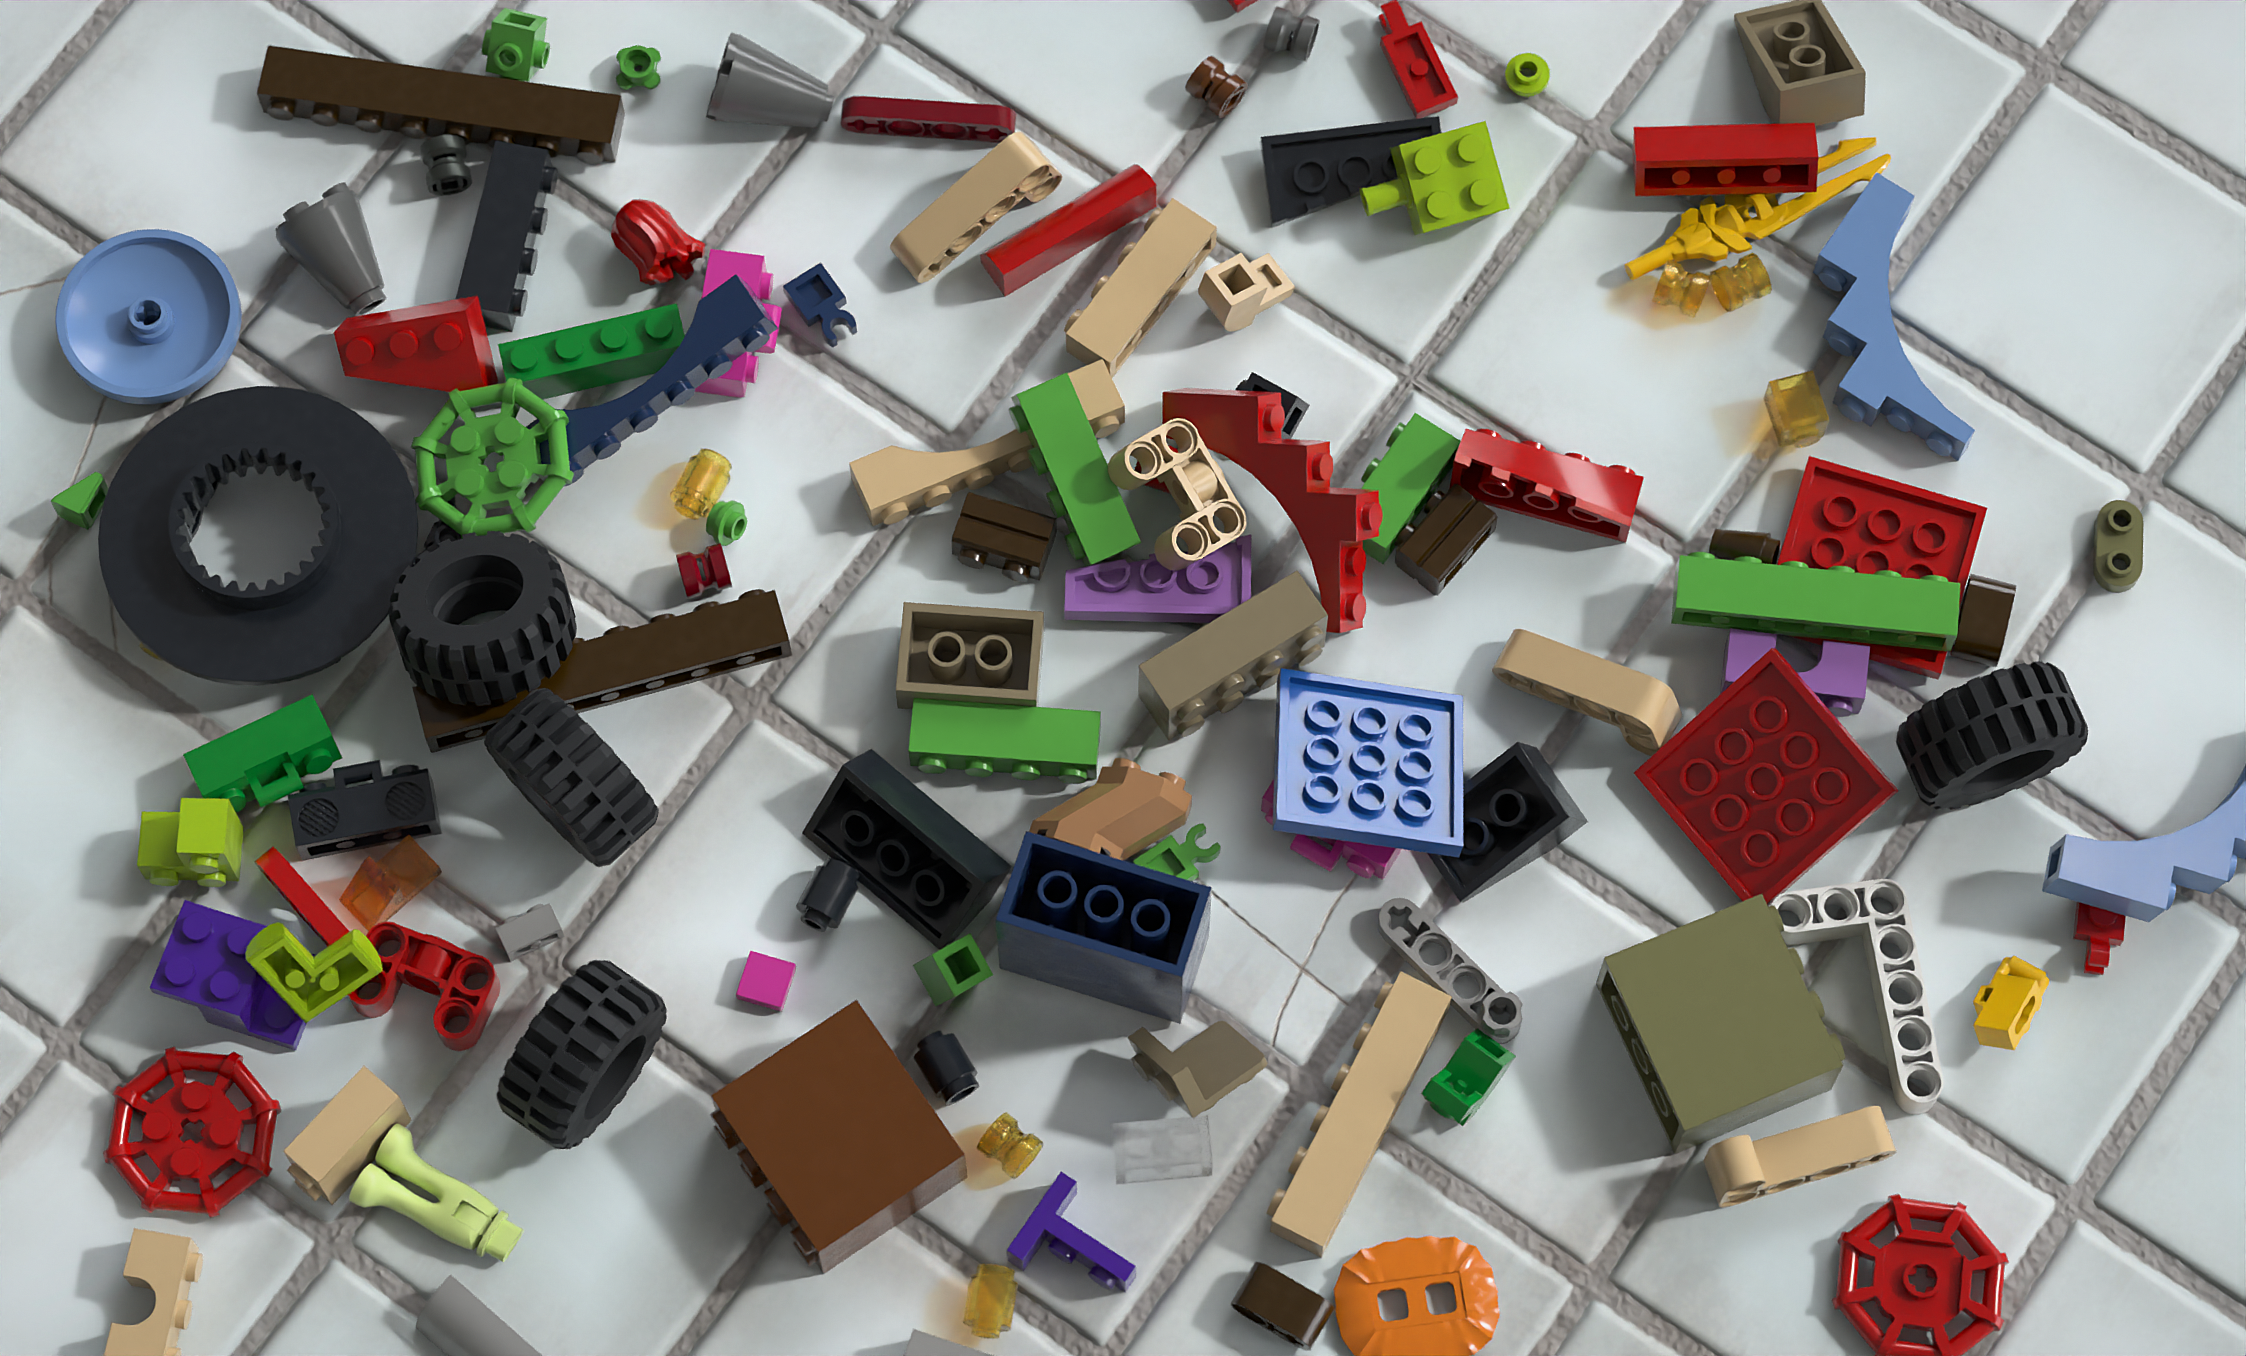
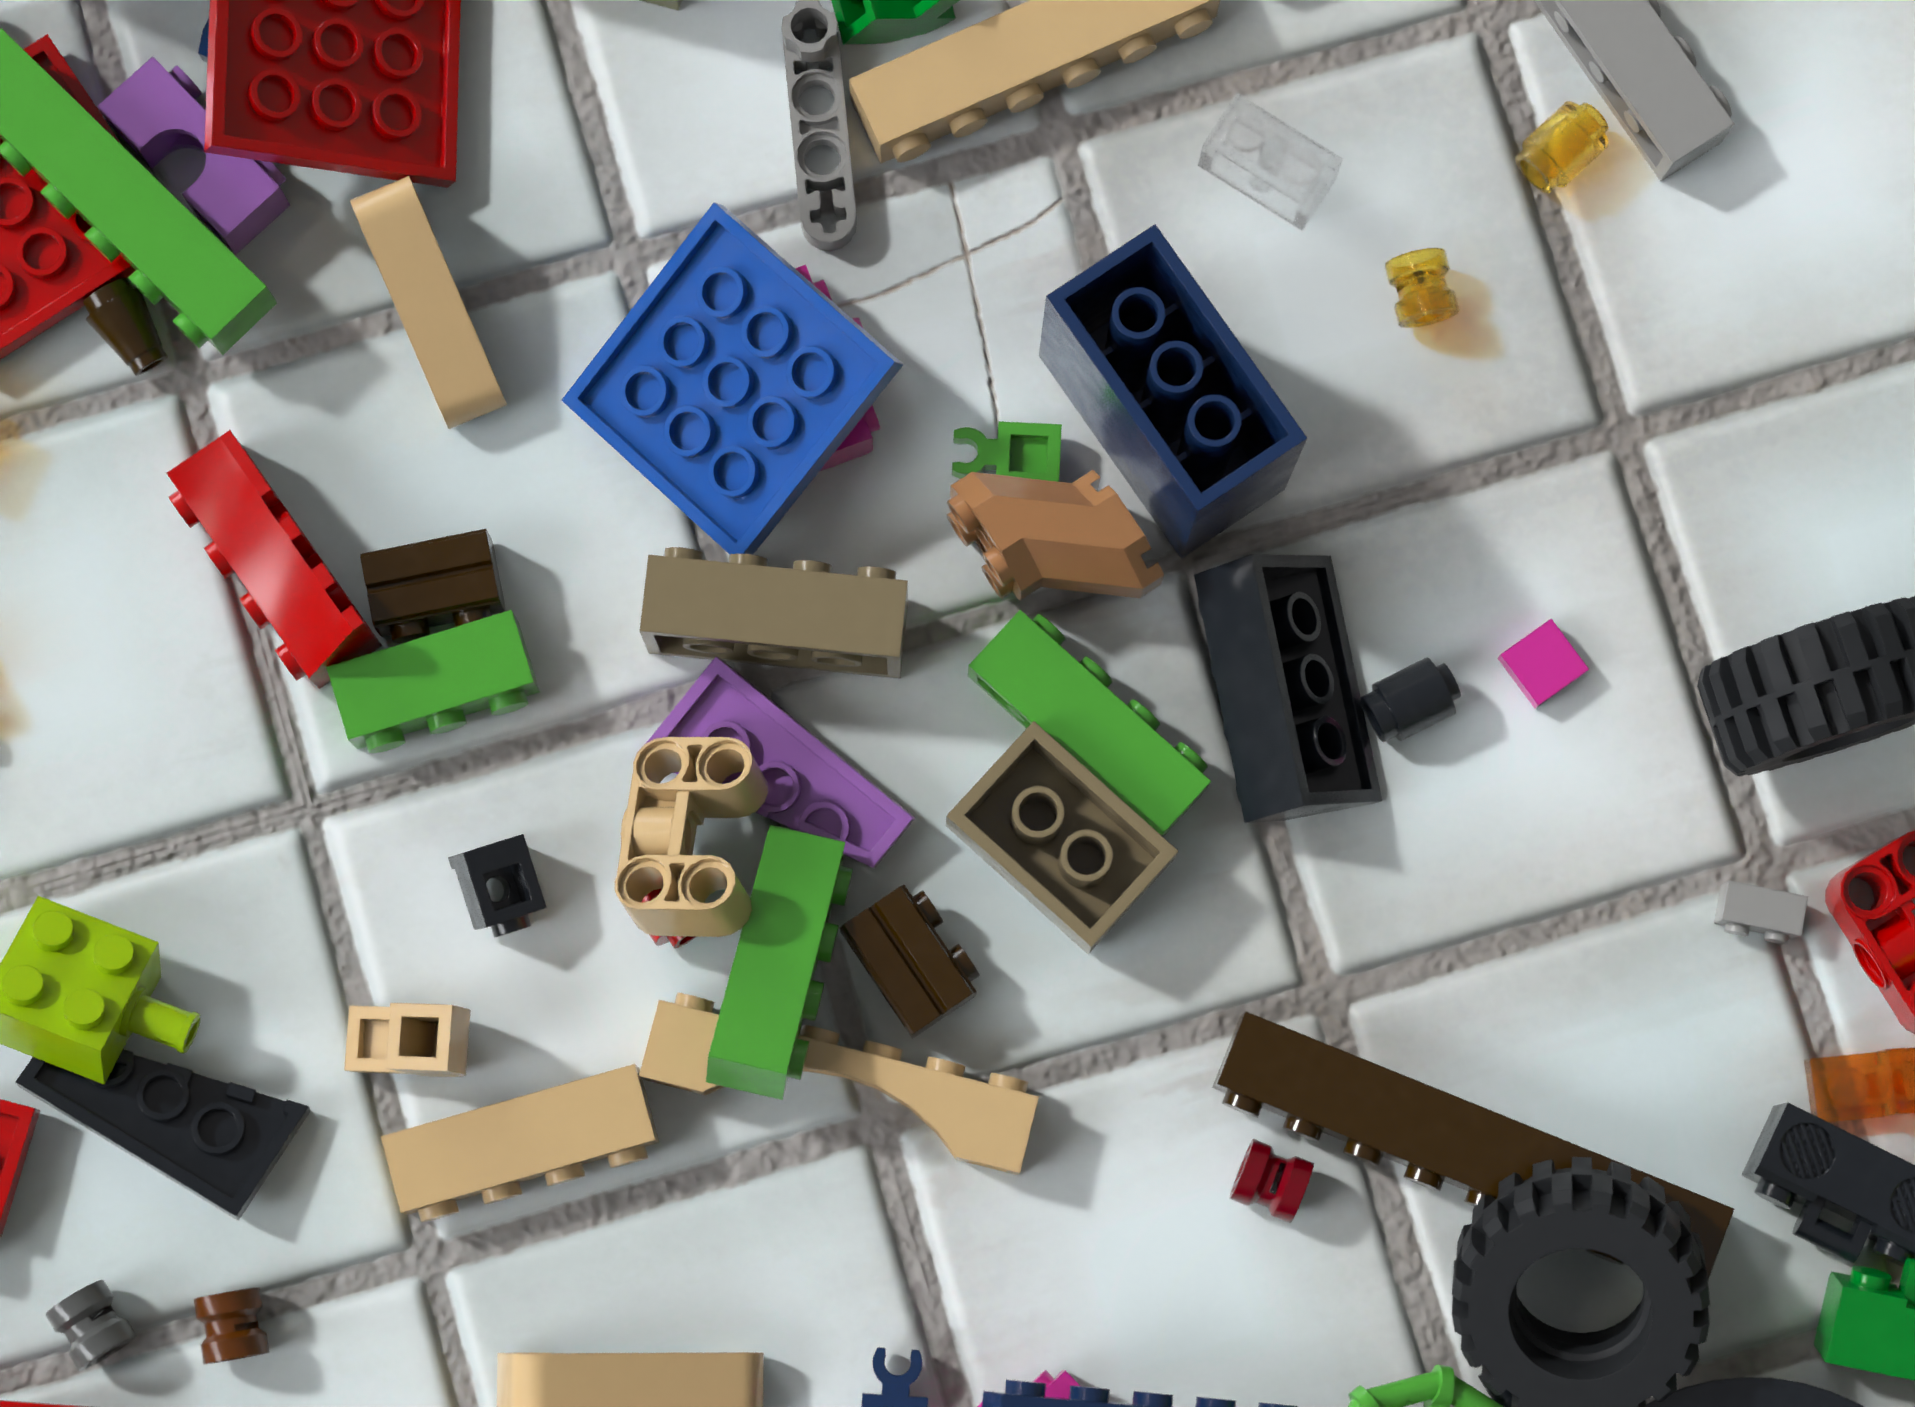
camera: 145 degrees left, 10 degrees up
(571, 777) = (1622, 1013): black tyre -> none
(701, 484) = (1197, 1290): clear yellow brick -> none
(726, 522) = (1202, 1221): bright green plate -> none
(837, 1138) = (1606, 414): reddish brown brick -> none
(946, 1067) = (1425, 419): black brick -> none
(953, 970) = (1345, 507): bright green brick -> none
(1067, 1240) = (1438, 148): dark purple bracket -> none
(1070, 229) = (538, 1284): red brick -> none
(1200, 1069) = (1178, 191): dark tan bracket -> none
(1298, 475) = (539, 763): red arch -> none
(1509, 819) = (618, 223): black slope -> none

